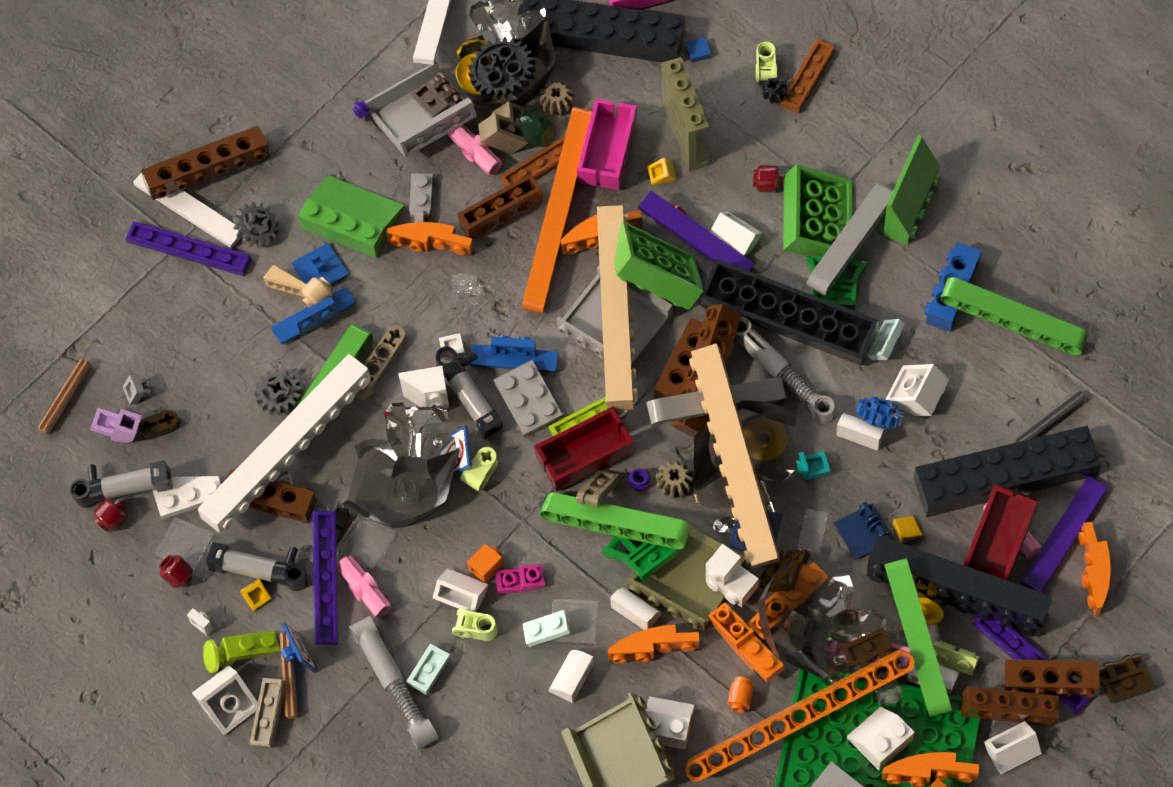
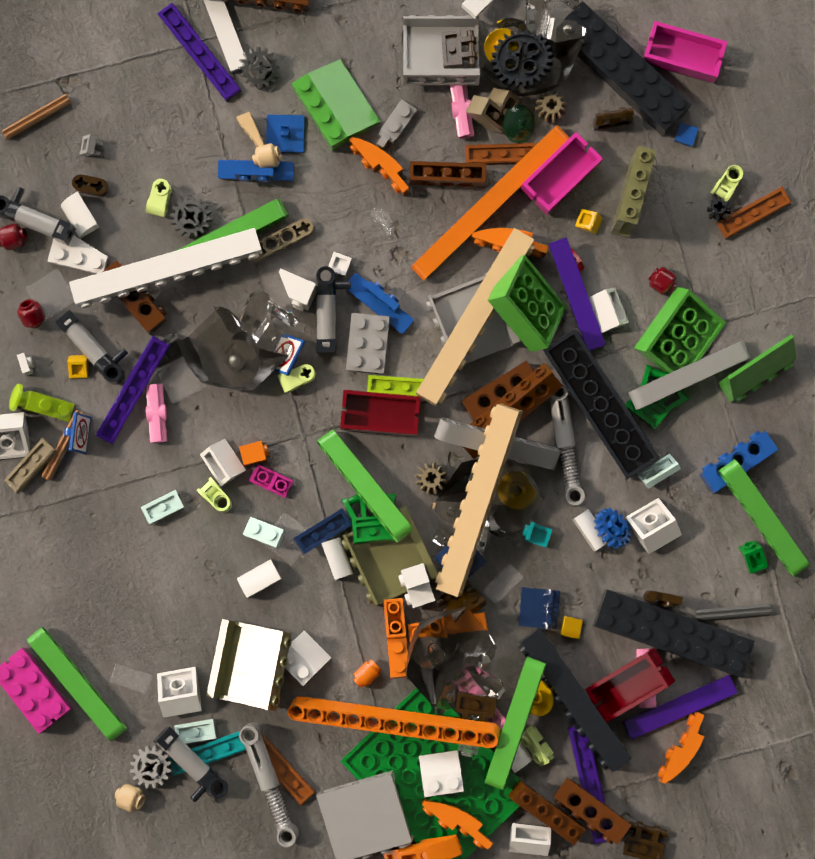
camera: 25 degrees right, 20 degrees up
(119, 426) = (57, 167): lavender brick -> none
(160, 449) = (79, 215): none -> white brick
(236, 395) = (159, 201): none -> yellowish green piece
(361, 110) = (397, 19): dark purple plate -> none
(392, 680) = (132, 495): light grey piece -> none
(597, 488) = (369, 452): dark tan plate -> none
(602, 589) = (322, 531): none -> dark blue plate
(621, 72) = (613, 118): none -> dark brown plate
(639, 473) = (402, 455): dark purple plate -> none
(642, 644) = (324, 590): orange slope -> none
(976, 441) = (667, 599): none -> dark brown plate
(1030, 358) = (753, 556): none -> green bracket

